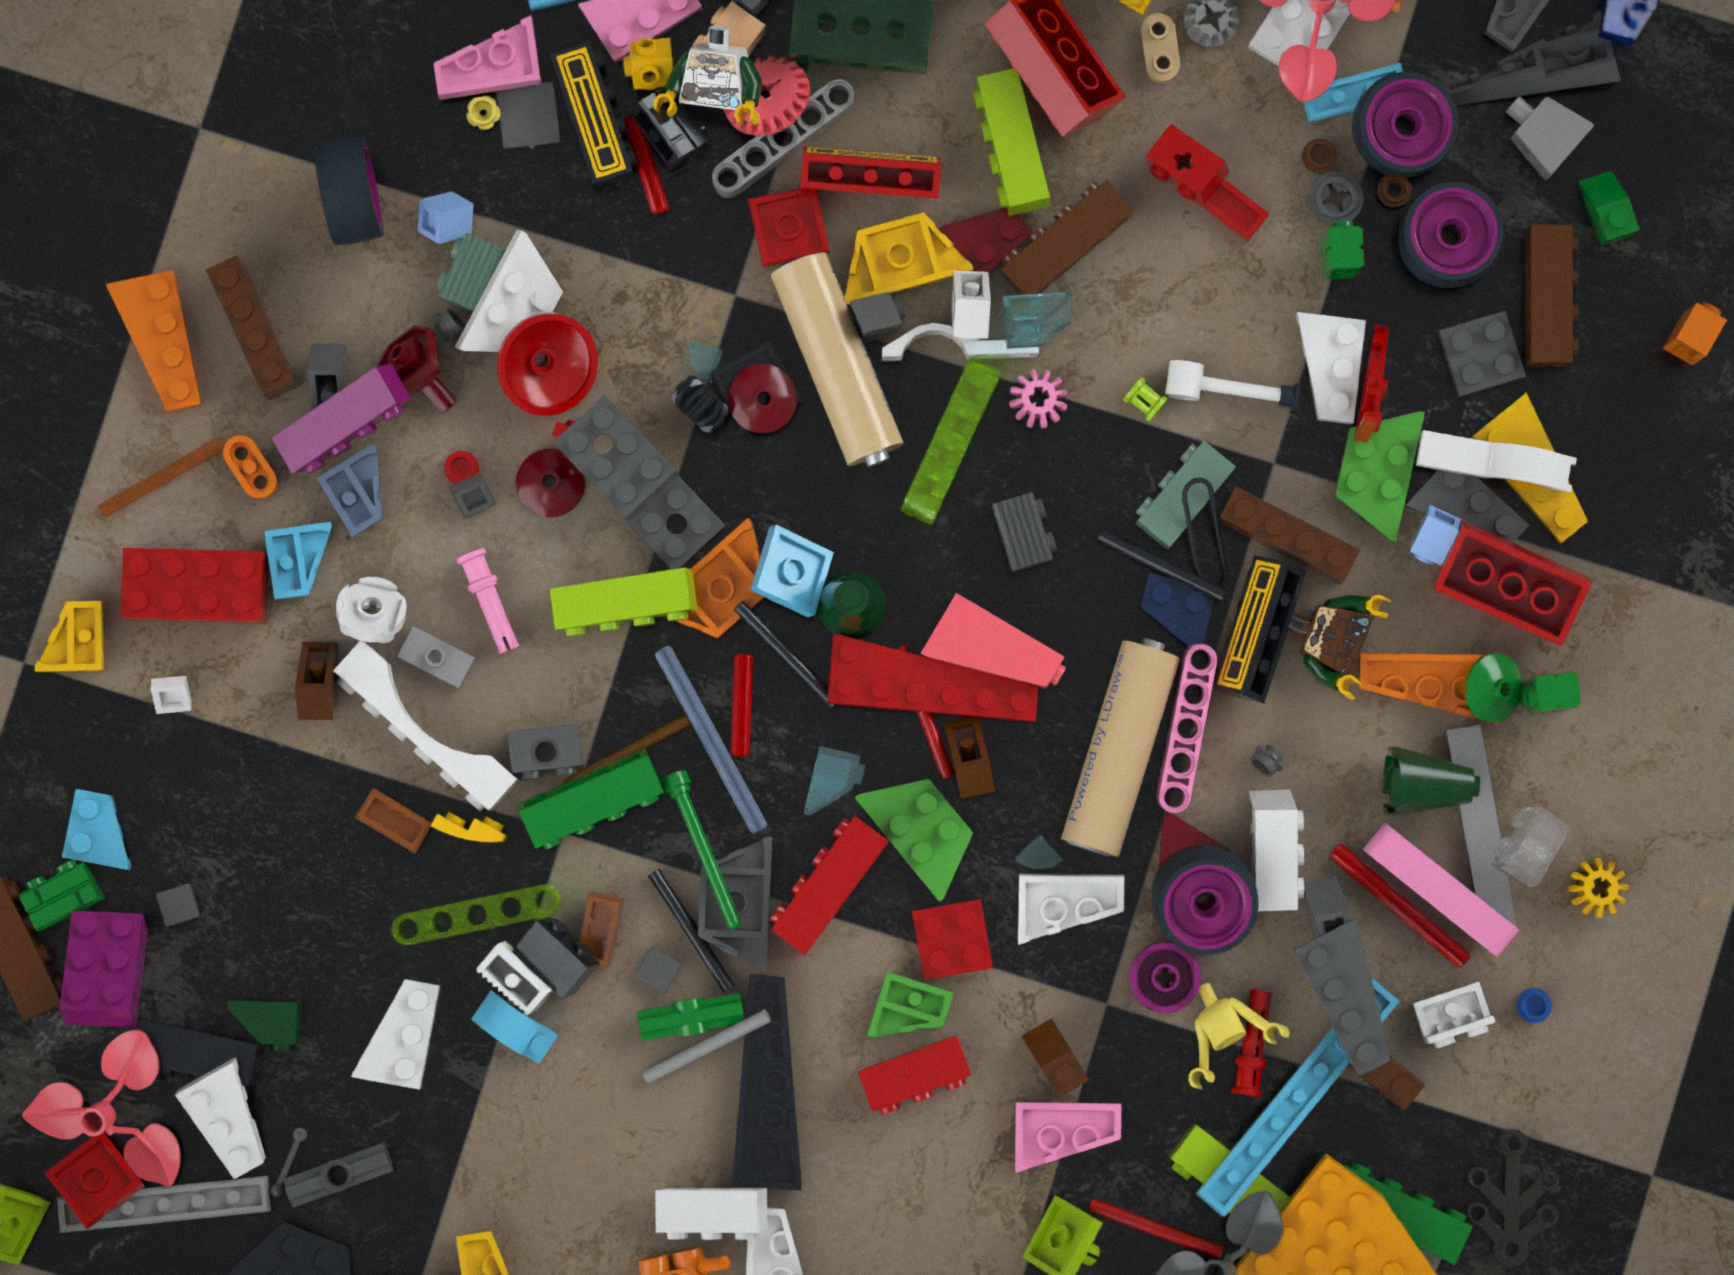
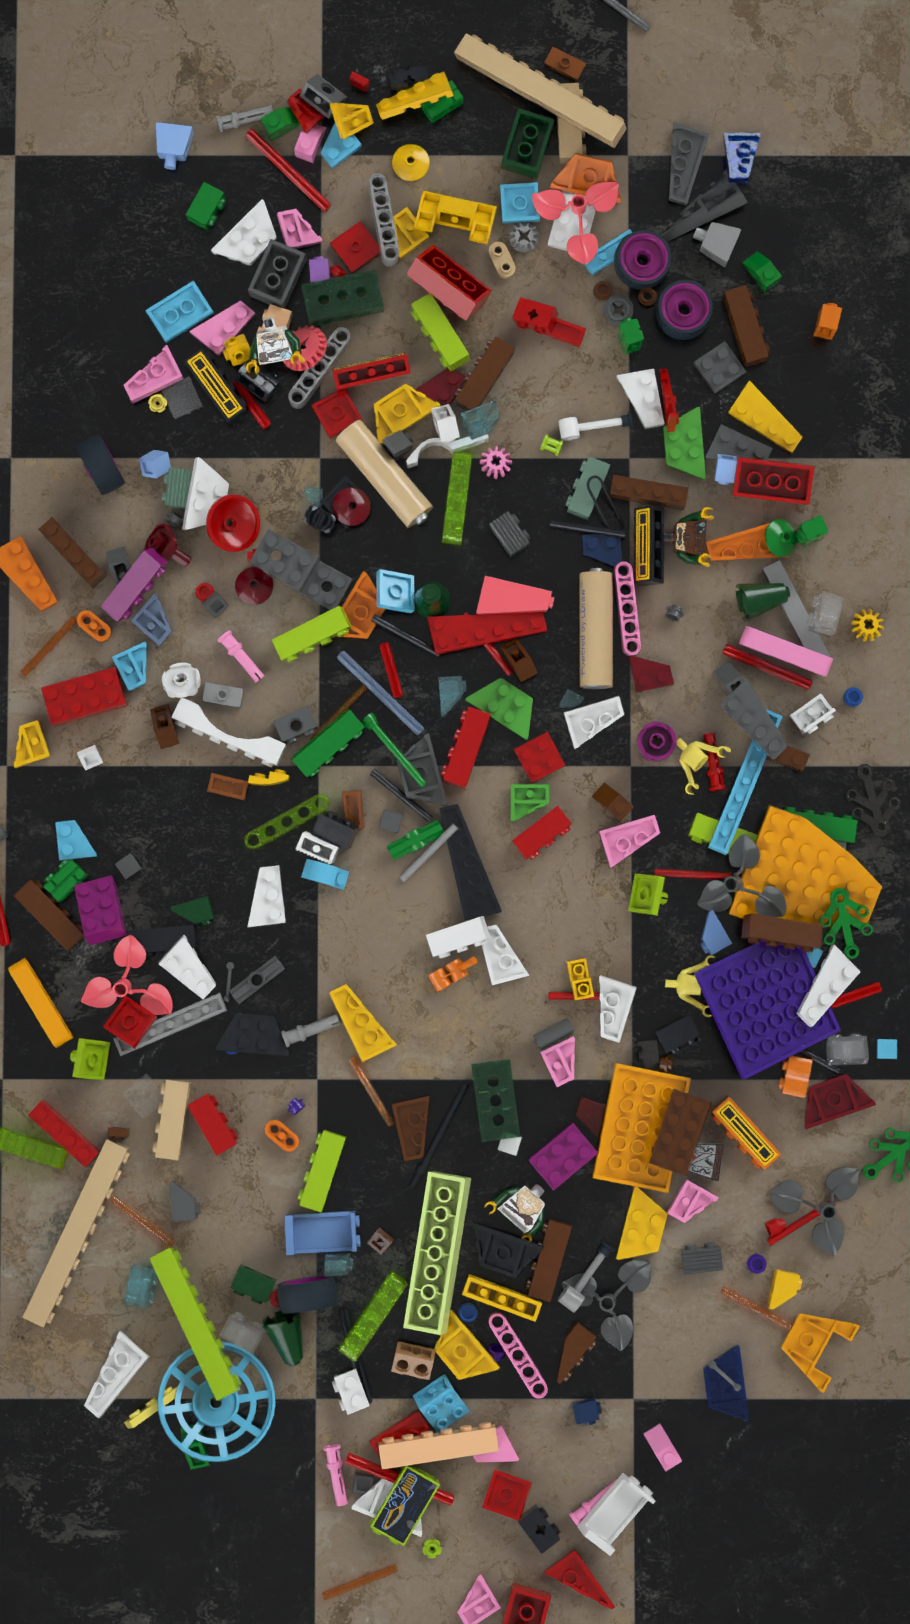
camera: 15 degrees left, 0 degrees up
(1210, 925) = (677, 701): magenta wheel -> none
(1276, 849) = (694, 658): white wedge -> none
(1495, 460) = (744, 419): white piece -> none

